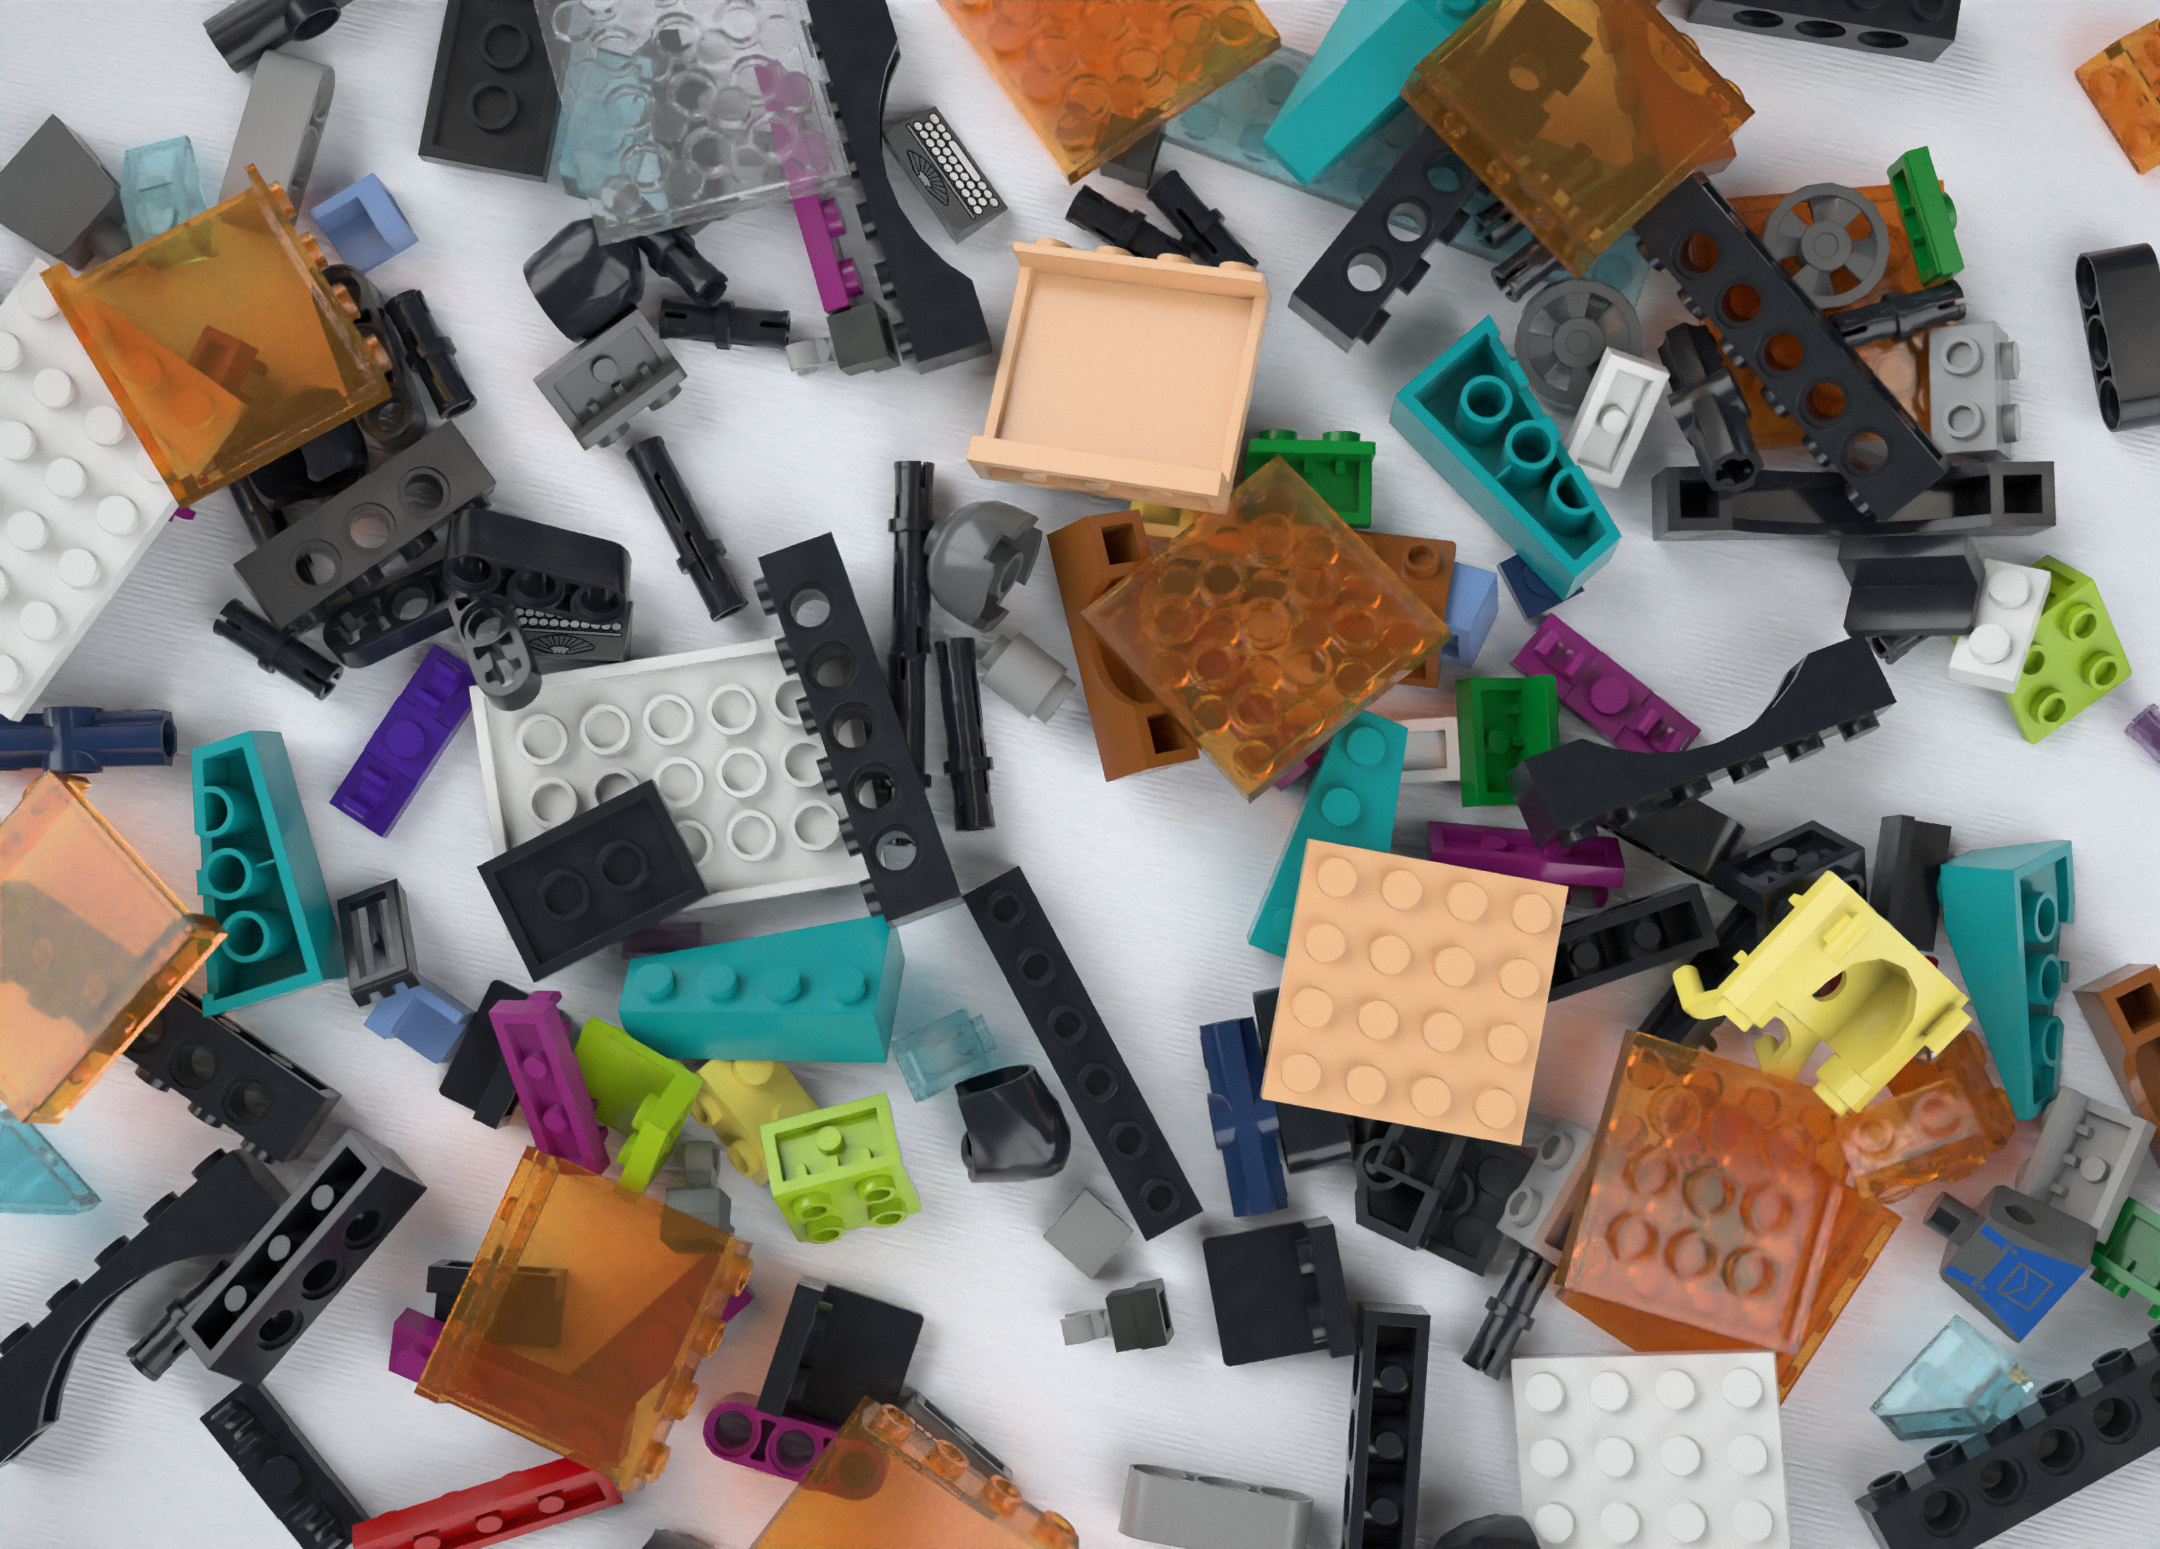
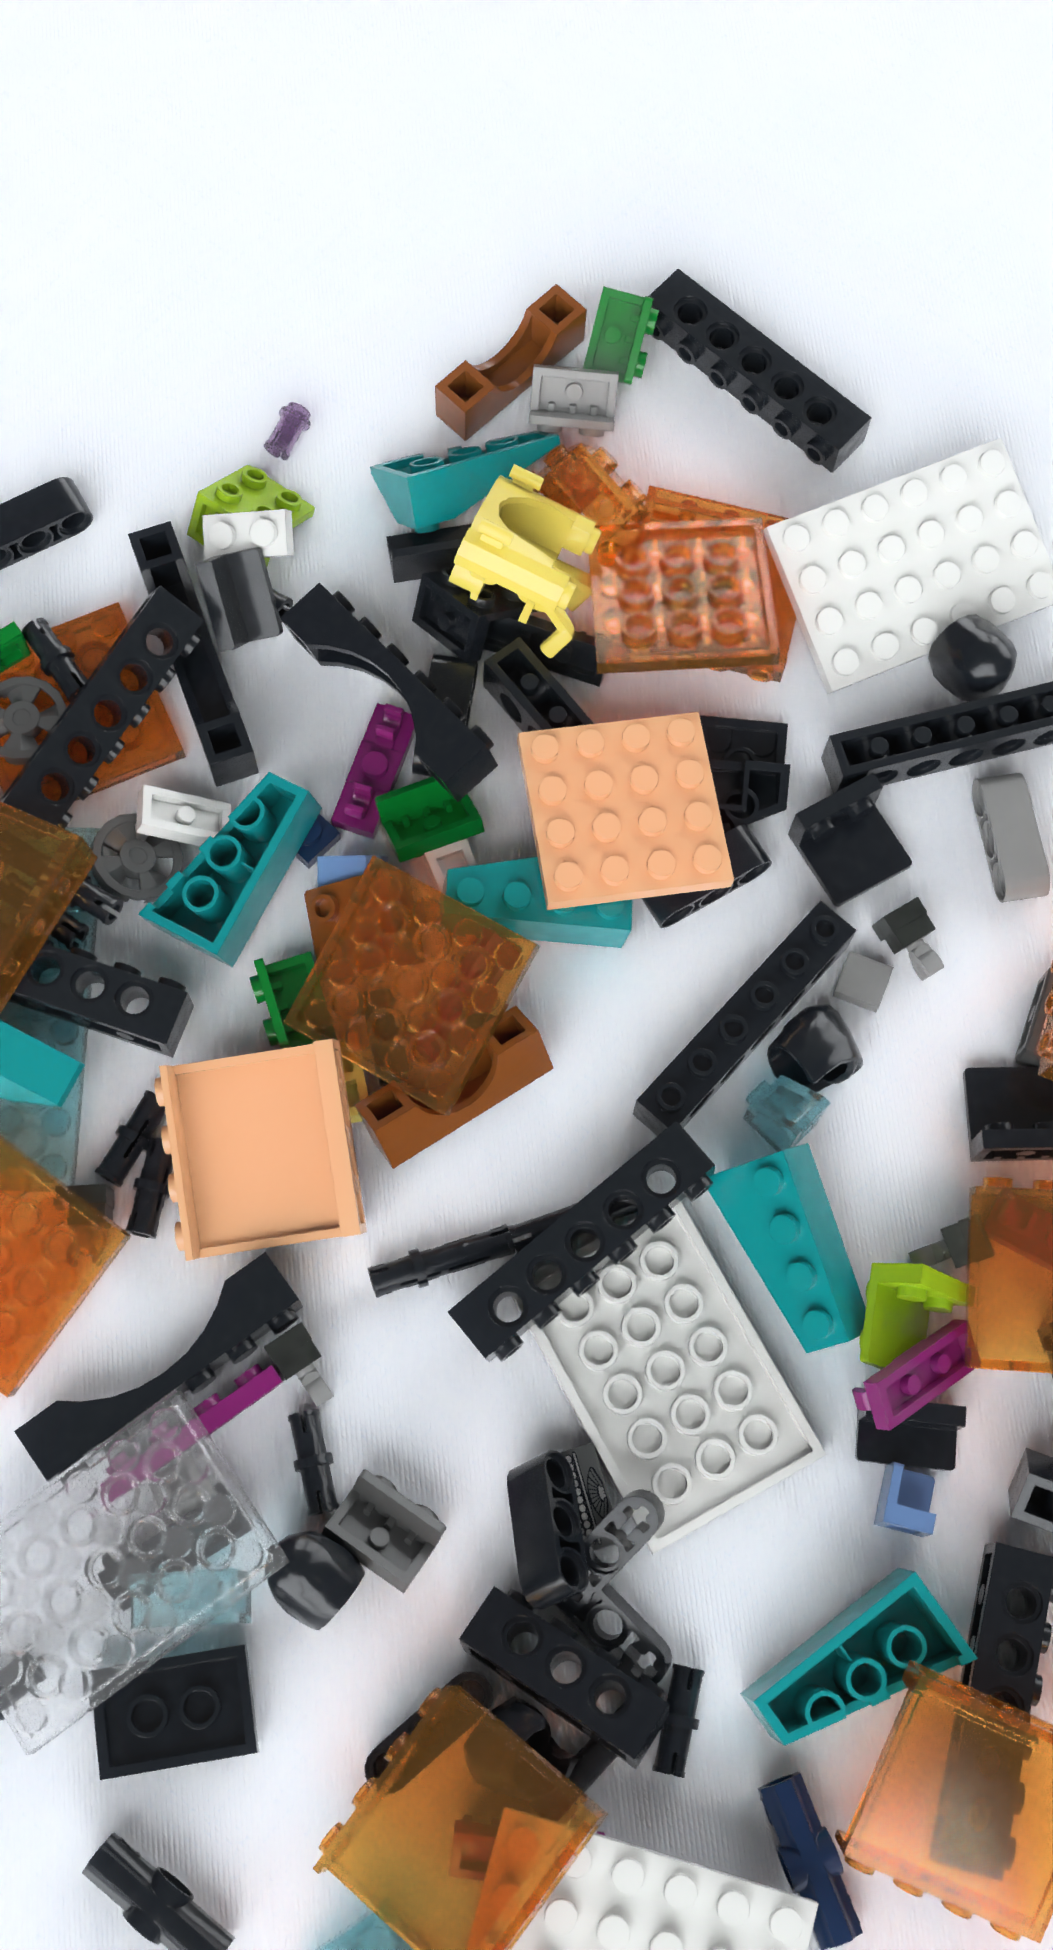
camera: 110 degrees left, 15 degrees down
(281, 125) = (271, 1880): light grey beam -> none
(364, 224) = (327, 1777): medium blue panel -> none
(386, 975) = (894, 1526): black tile -> none
(407, 743) = (709, 1590): dark purple plate -> none
(430, 354) = (410, 1685): black pin -> none
(594, 880) = (762, 1400): black plate -> none
(661, 939) = (782, 1343): clear purple pin -> none
(674, 256) = (281, 1500): black pin -> none
(720, 594) = (518, 1390): black pin -> none
(739, 1099) = (877, 1225): light yellow bracket -> none
(839, 1170) = (890, 1152): lime bracket -> none
(944, 173) = (147, 1338): slope -> none
(963, 725) = (555, 1179): black pin -> none
(979, 559) = (428, 1207): dark grey cylinder -> none
(1026, 676) = (499, 1149): light grey brick -> none
(1240, 1119) = (745, 905): dark blue piece -> none
(1509, 1313) = (803, 701): black pin -> none
(1515, 854) = (505, 788): magenta plate -> none
(1545, 1202) = (715, 693): light grey bracket -> none
(1710, 408) = (159, 751): black piece -> none
(1953, 1387) = (740, 429): clear light blue slope -> none
(1971, 390) = (94, 605): light grey bracket -> none
(2010, 1255) = (647, 419): dark grey torso -> none

